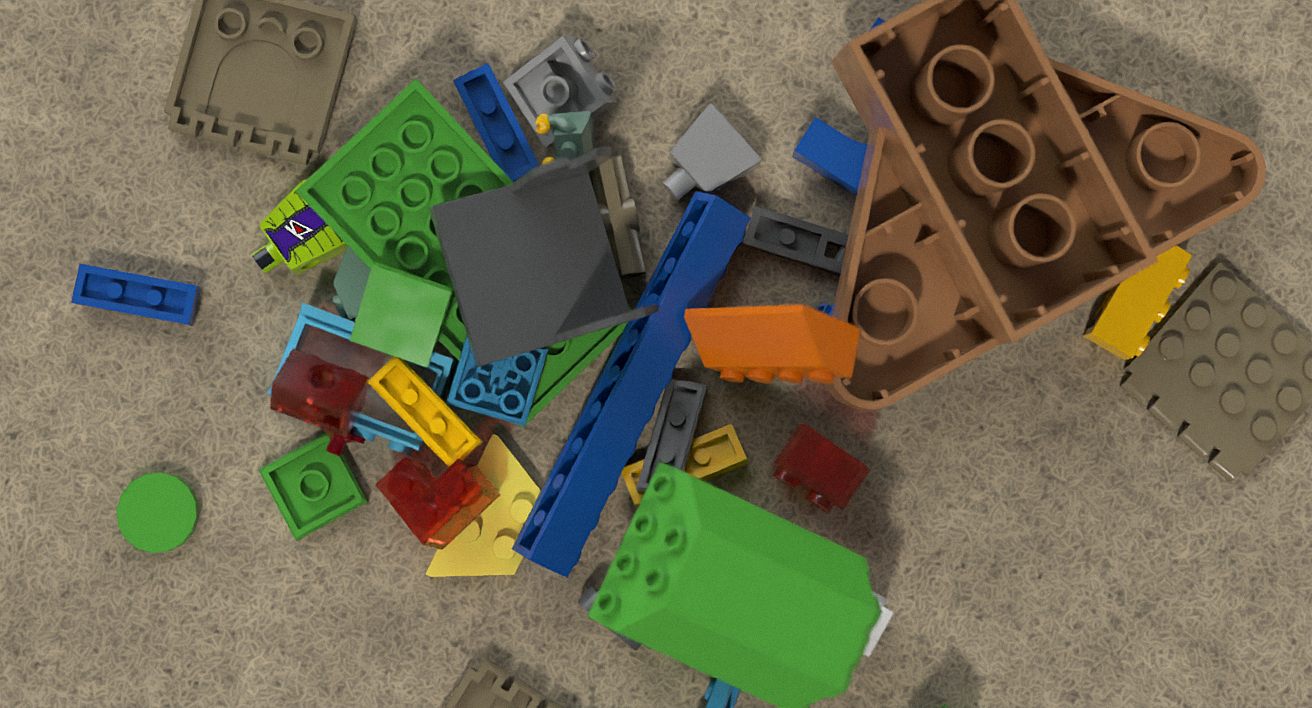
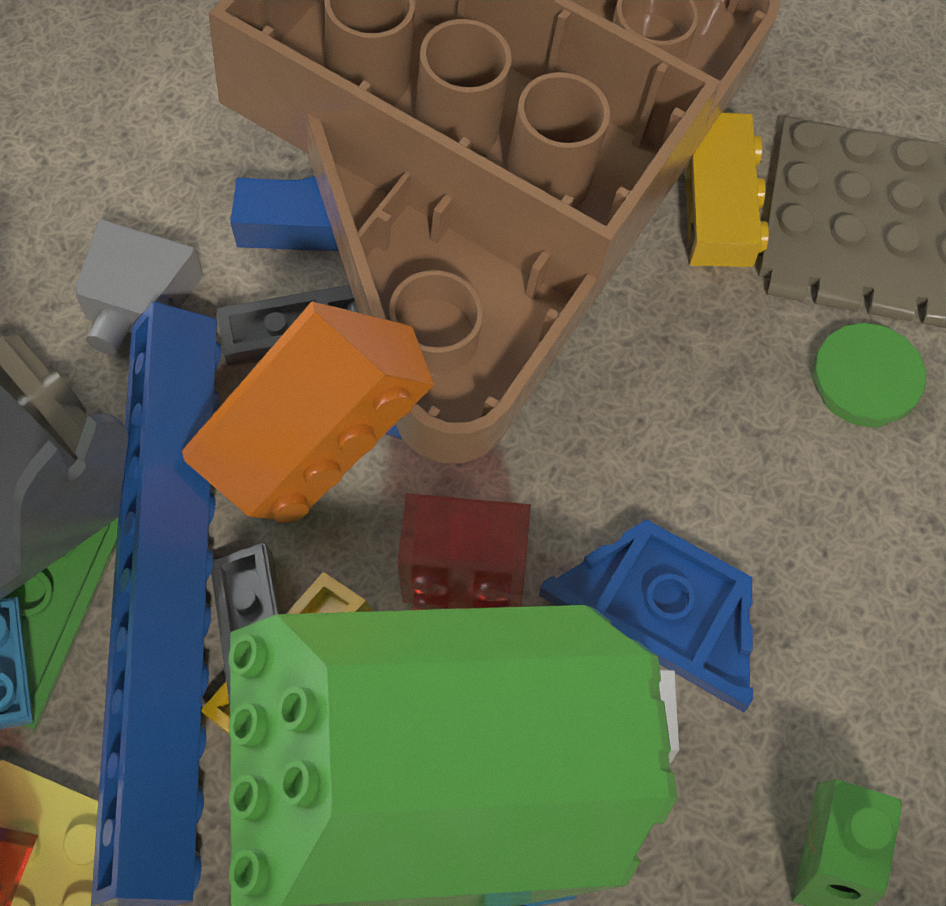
camera: 30 degrees left, 20 degrees down
(923, 557) = (673, 603): none -> blue wing
(1146, 479) = (869, 374): none -> bright green tile

